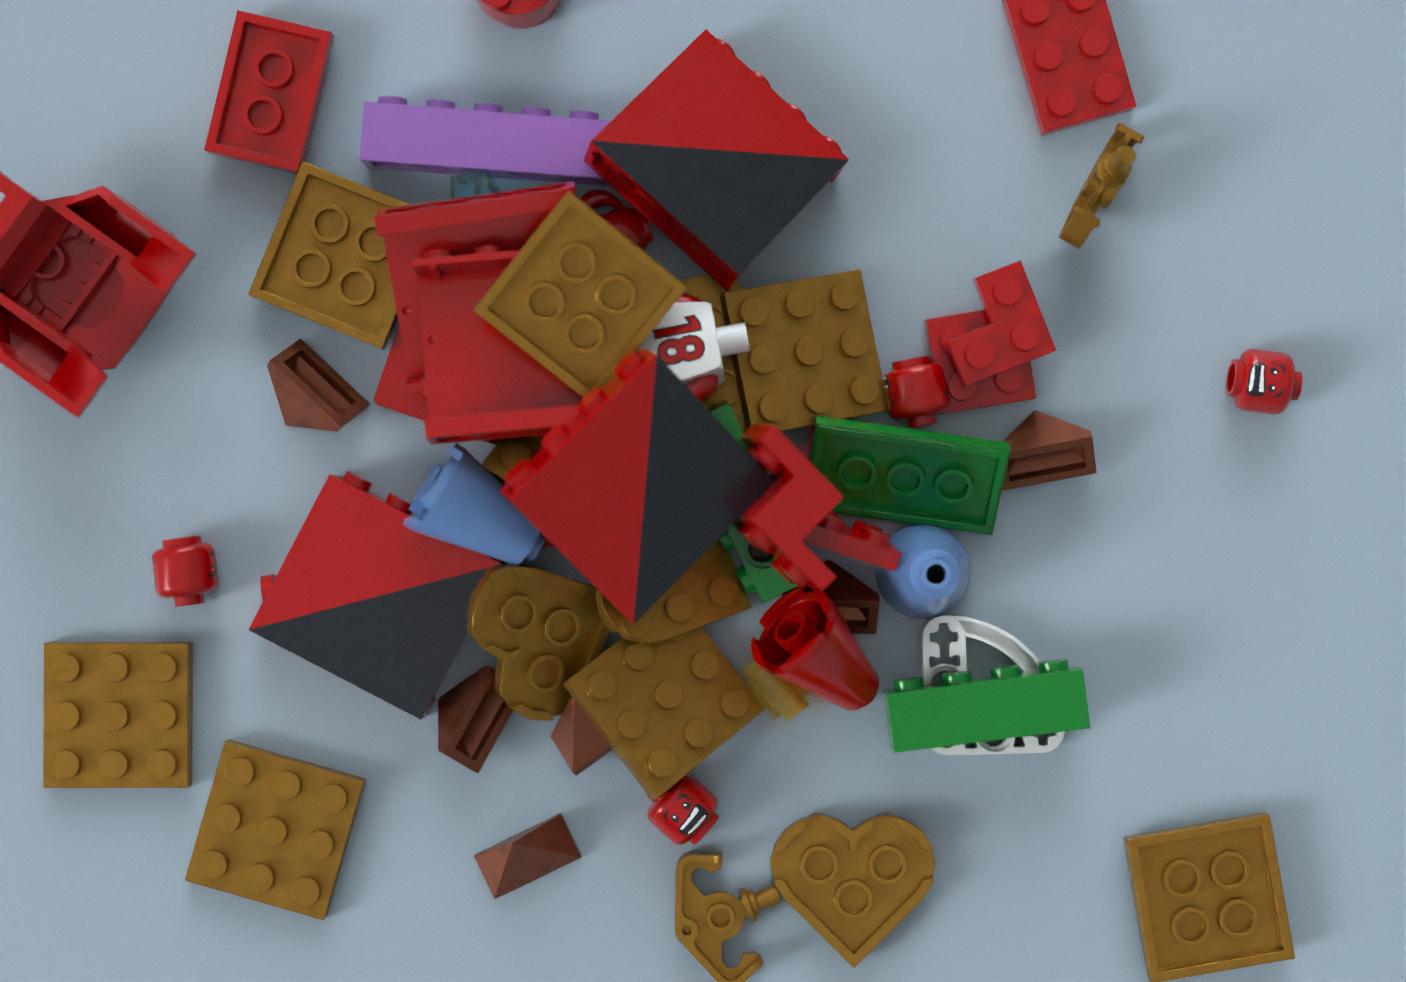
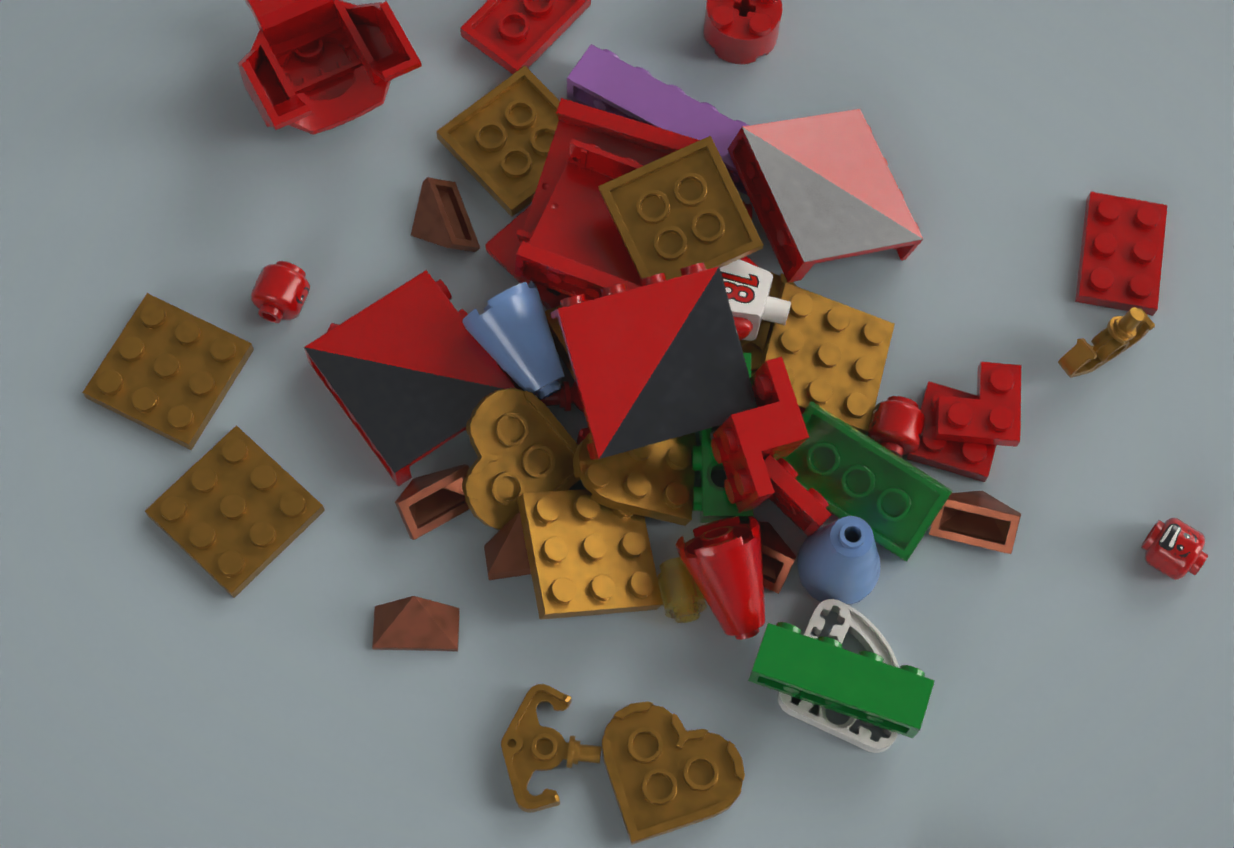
camera: 25 degrees right, 20 degrees down
(684, 811) = (558, 648): red head -> none

